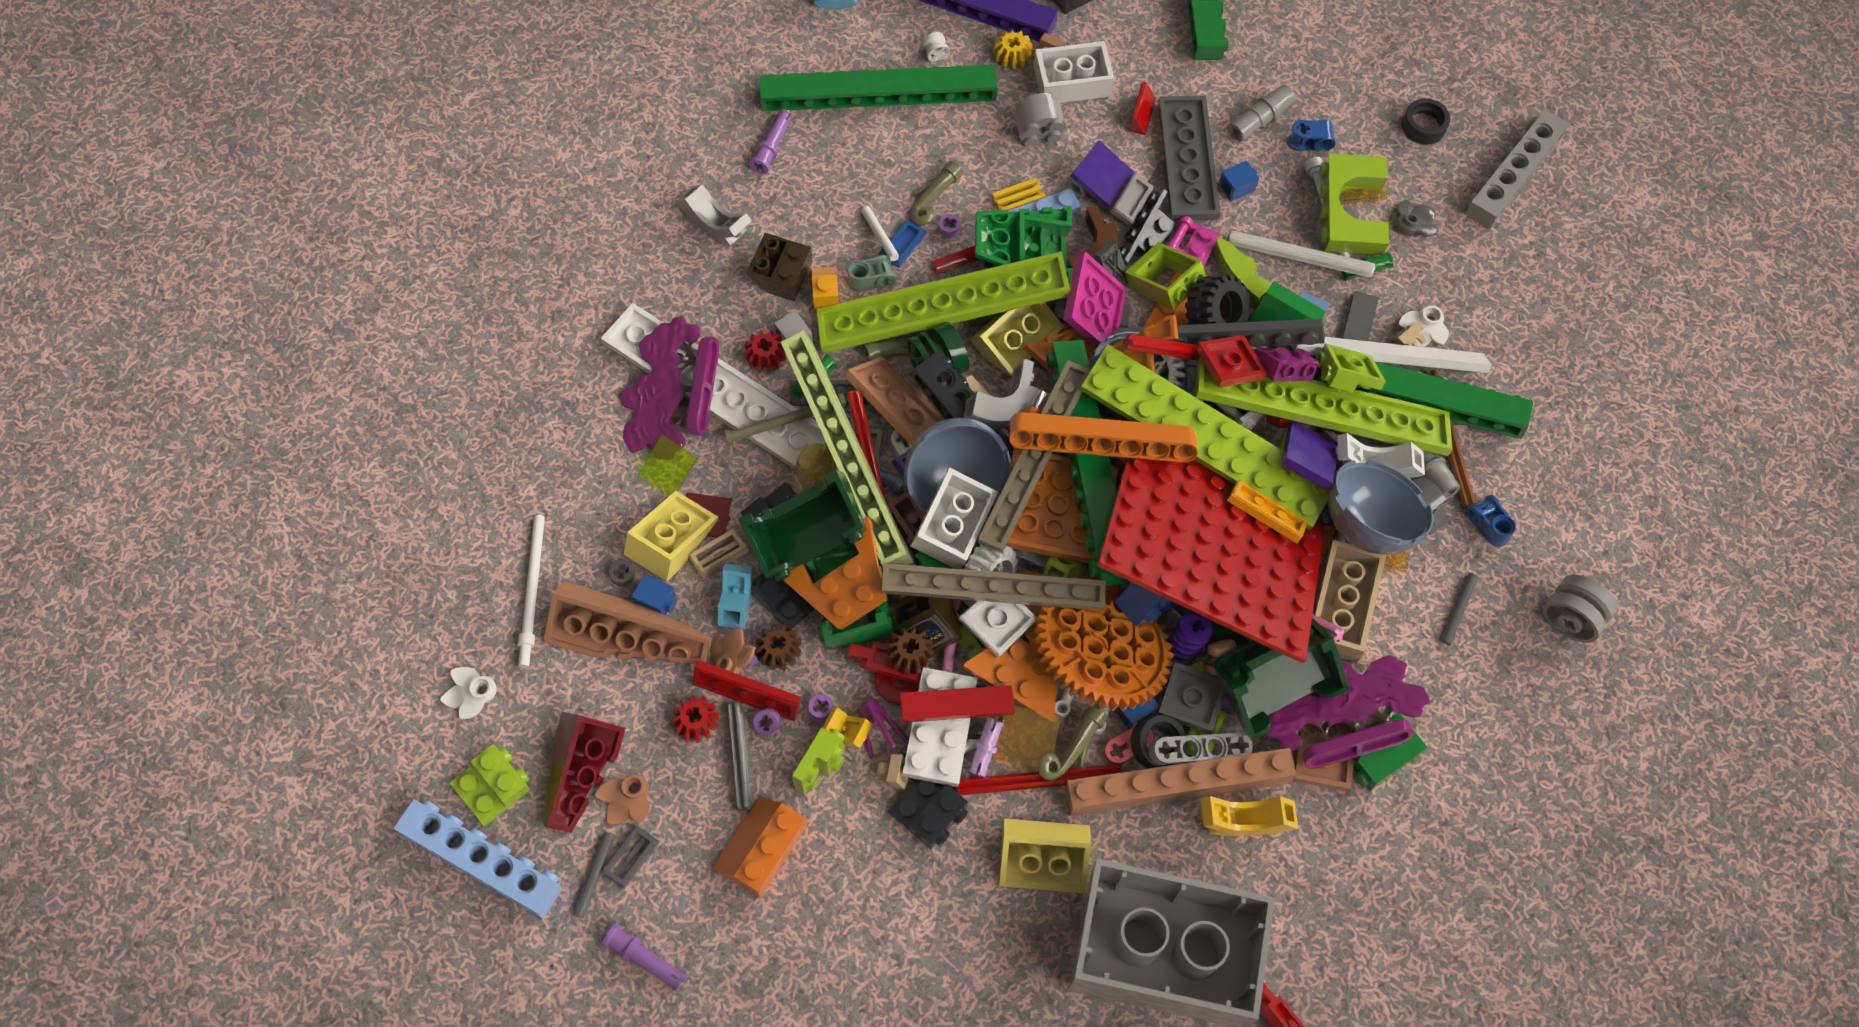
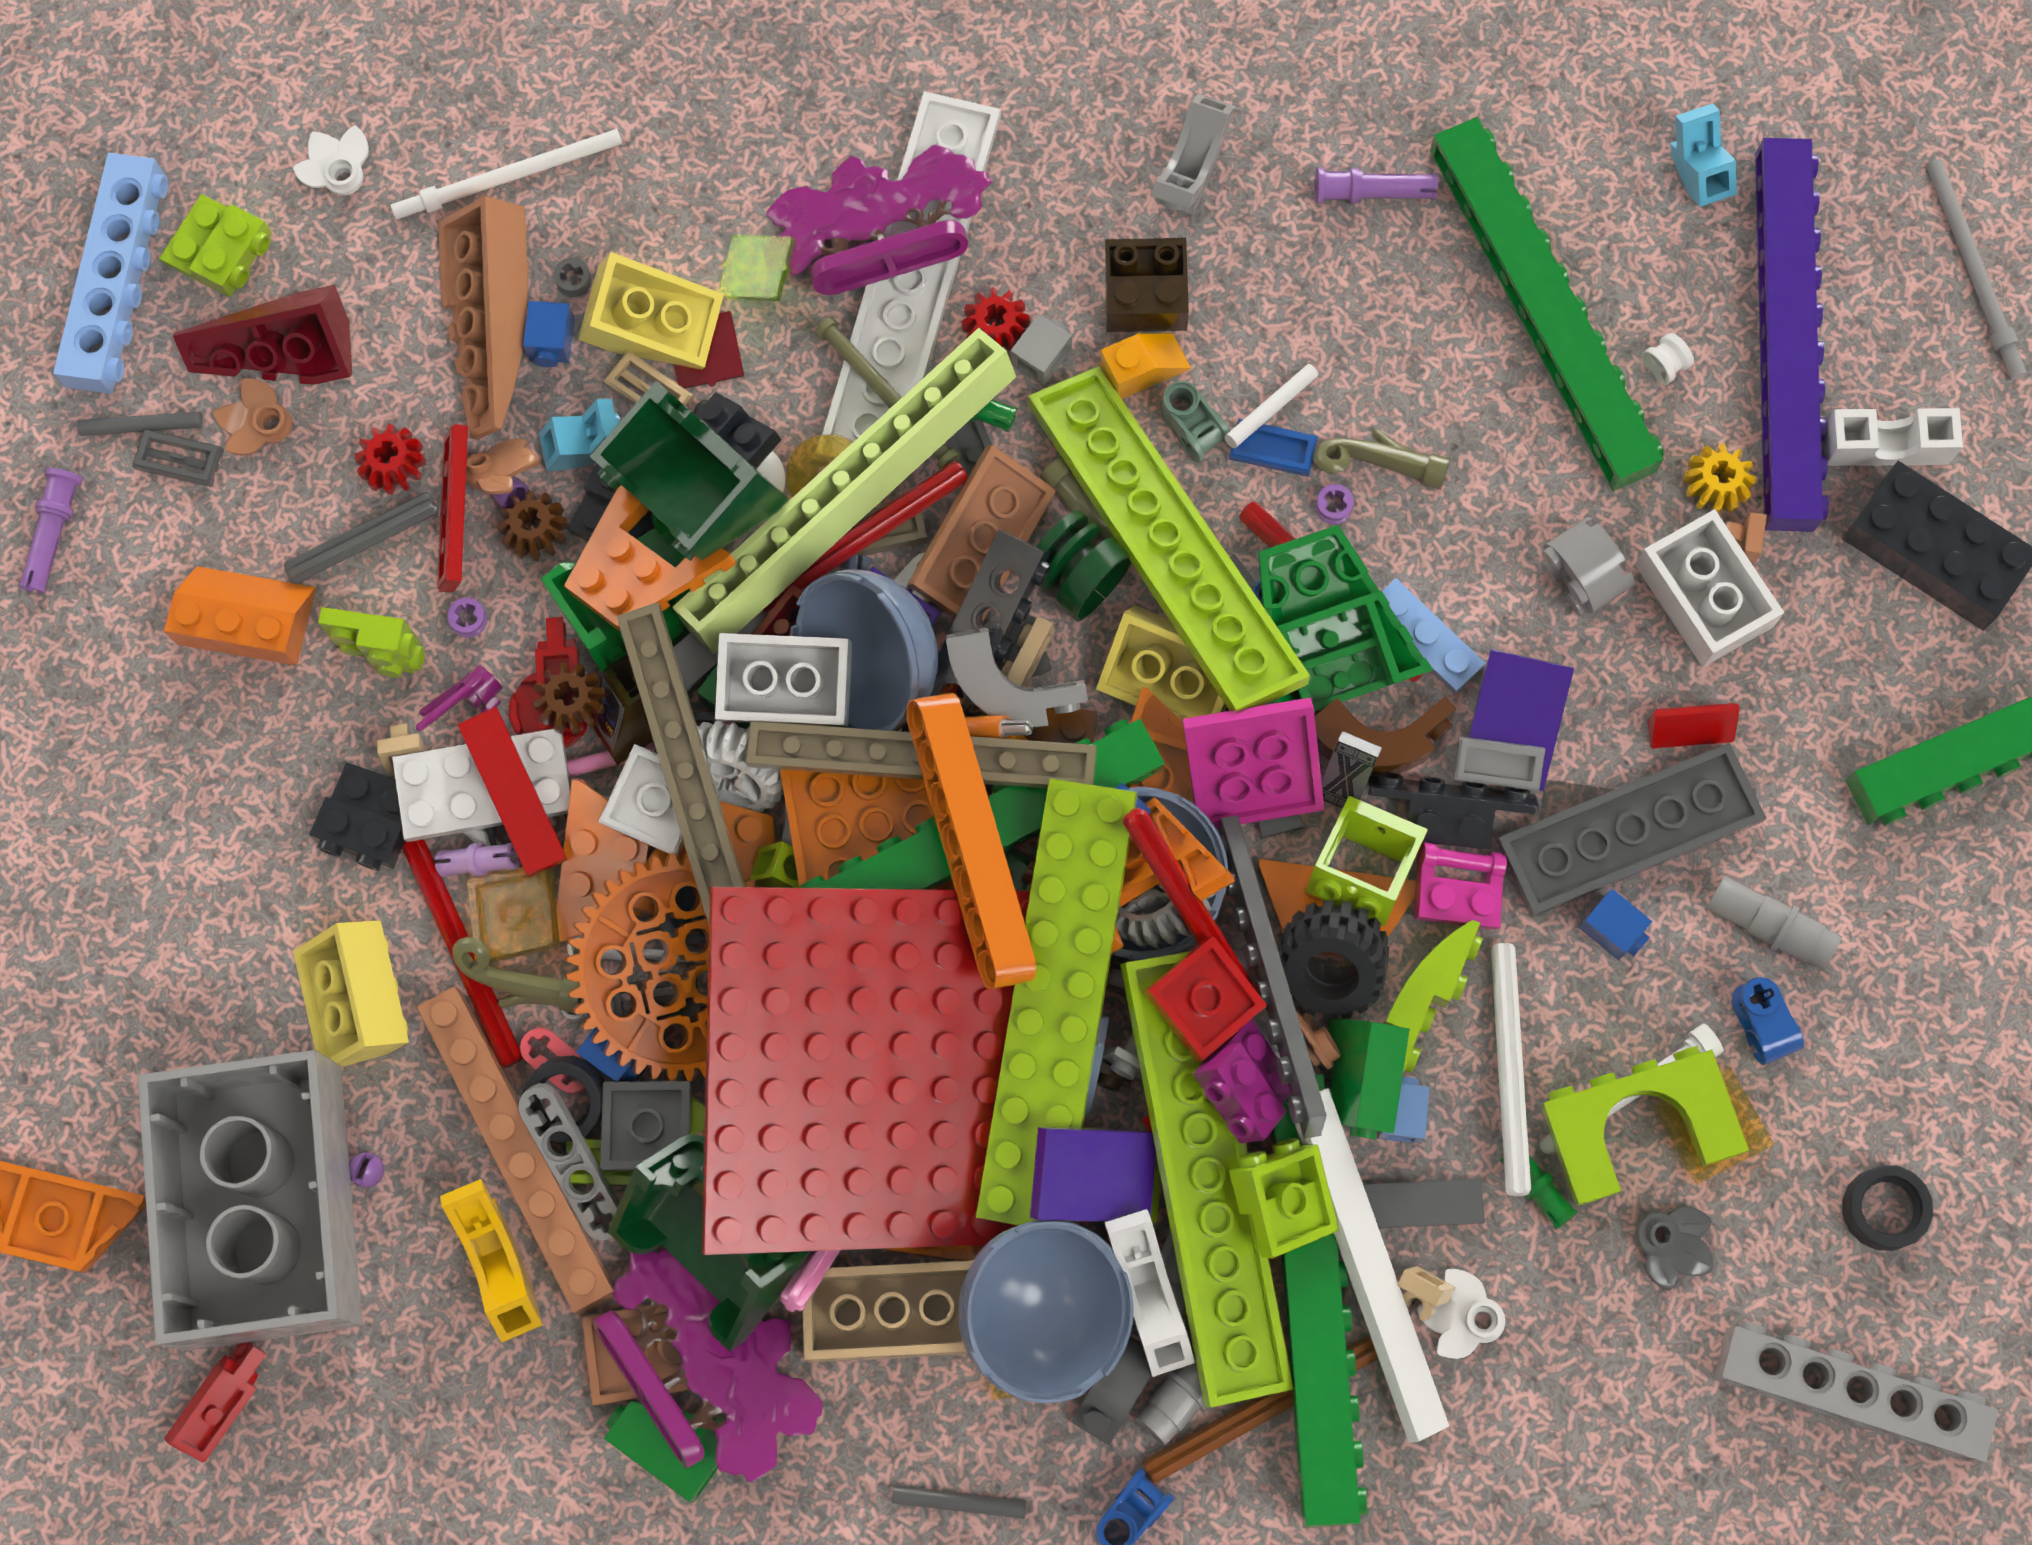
camera: 75 degrees right, 10 degrees up
(760, 728) = (419, 553): medium lavender bush -> none
(852, 728) = (443, 661): yellow bracket -> none
(1034, 188) = (1448, 578): yellow tile -> none
(1267, 511) = (969, 1138): light orange tile -> none

